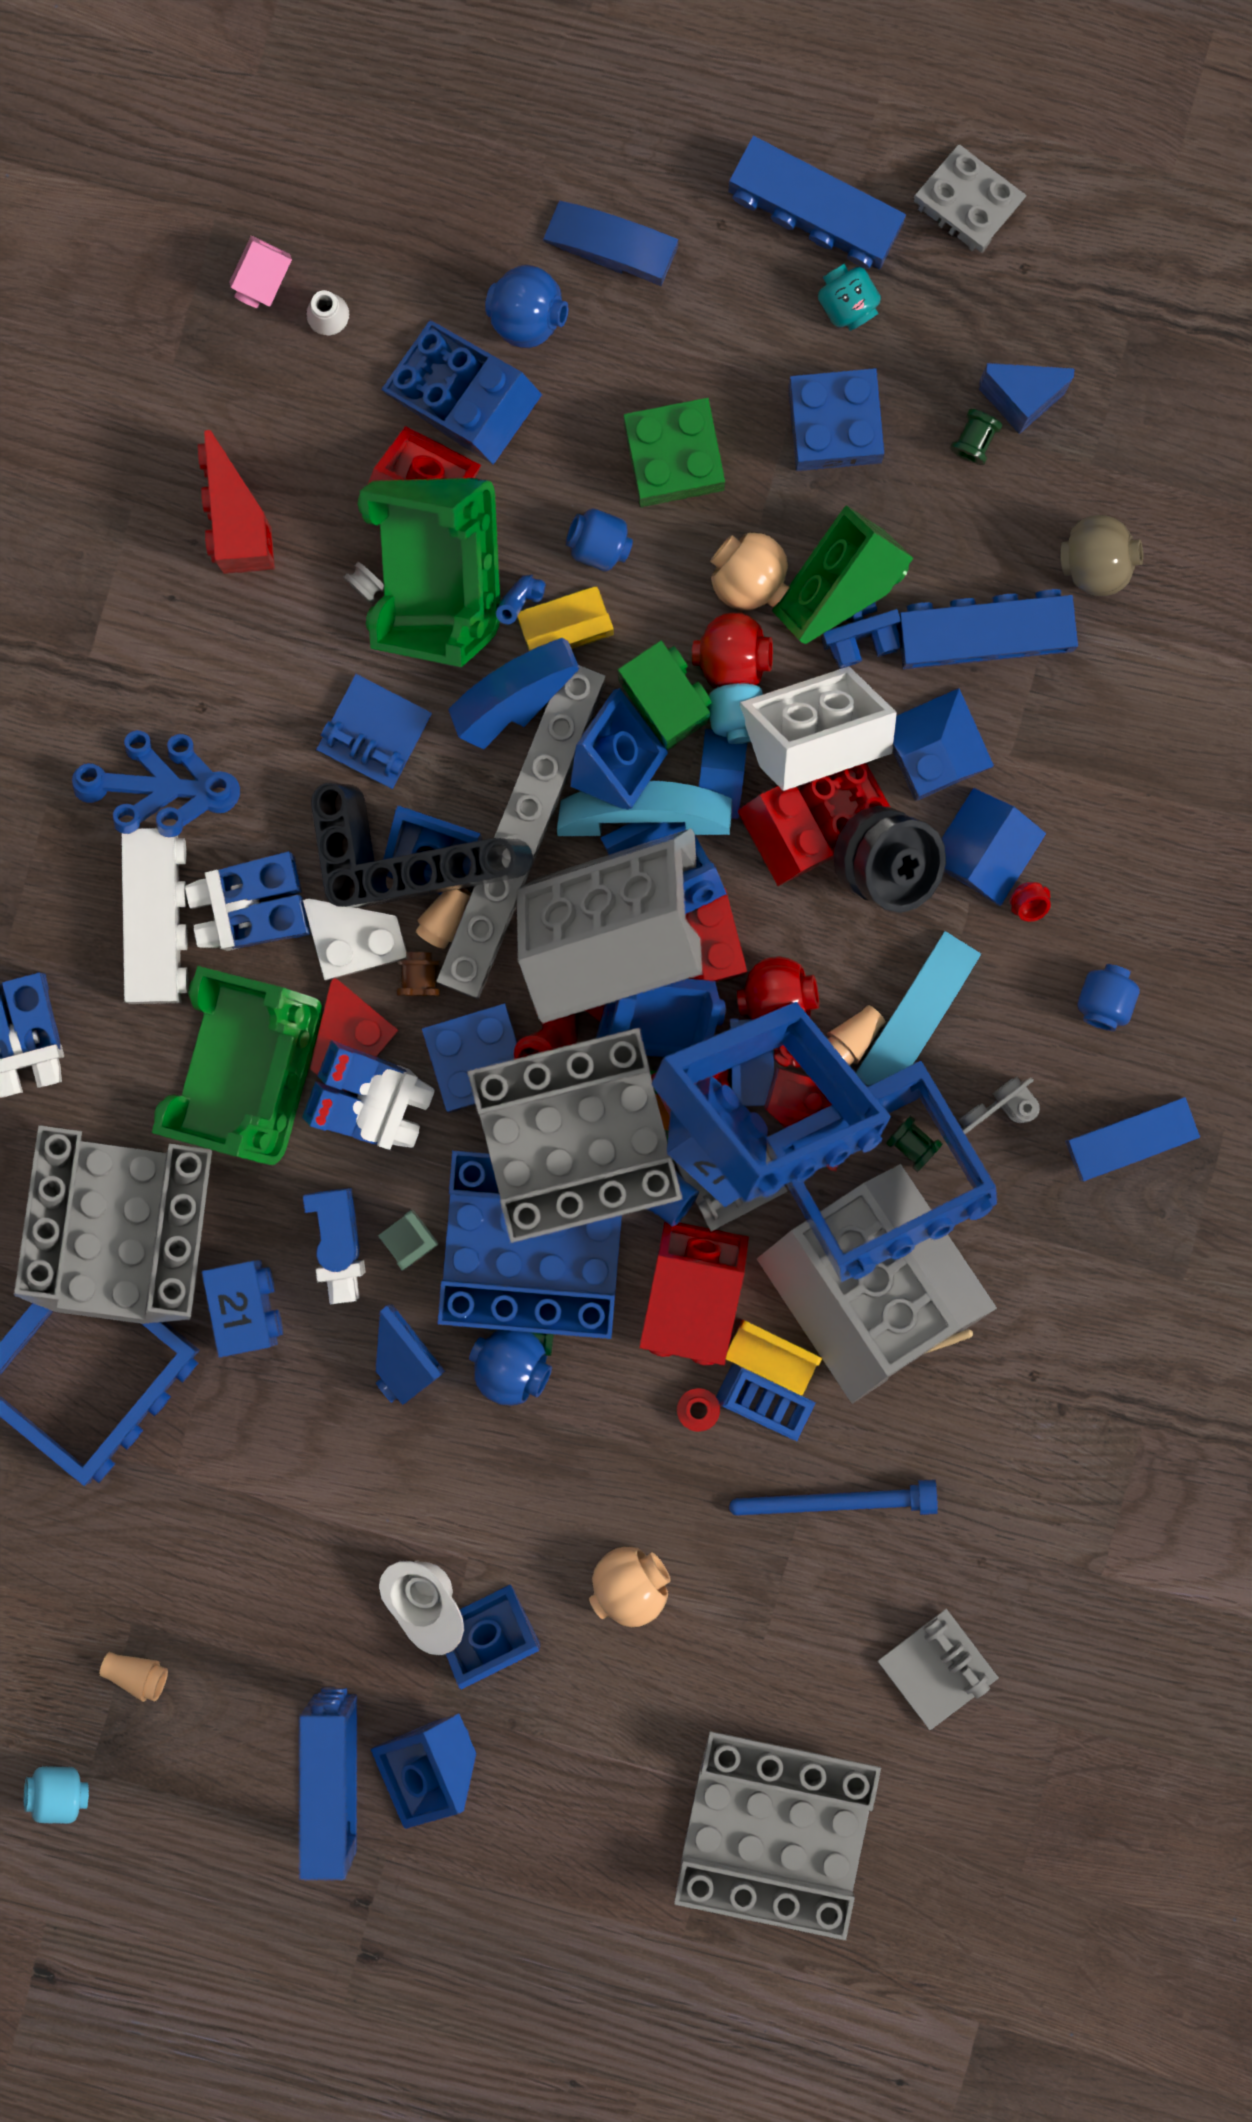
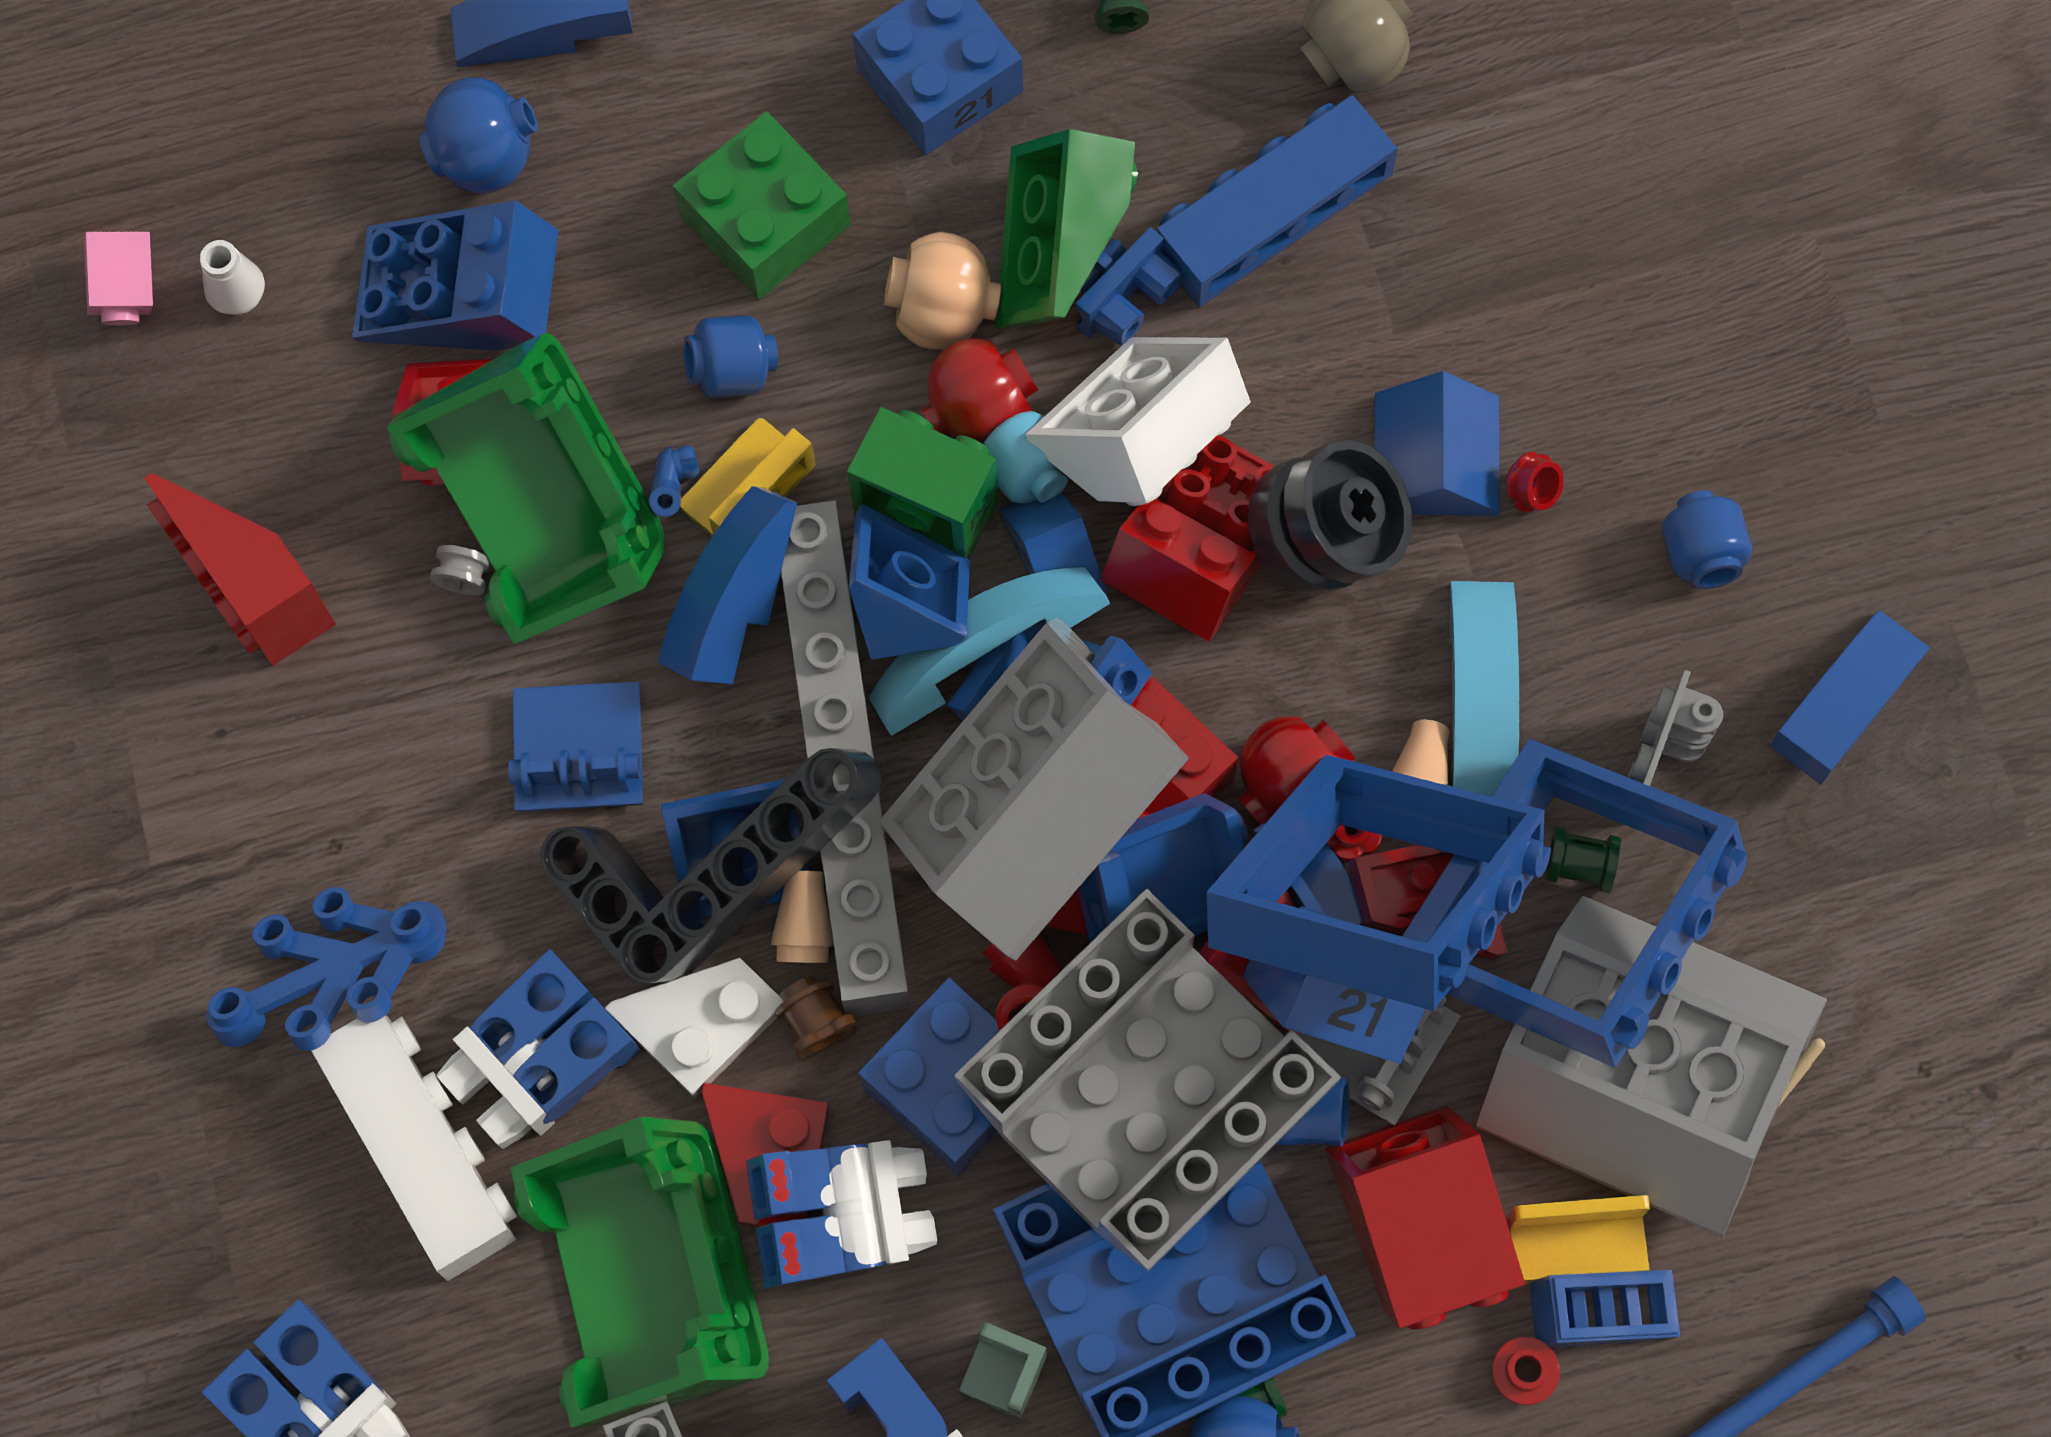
camera: 30 degrees left, 15 degrees down
(939, 745) = (1302, 368): blue slope -> none

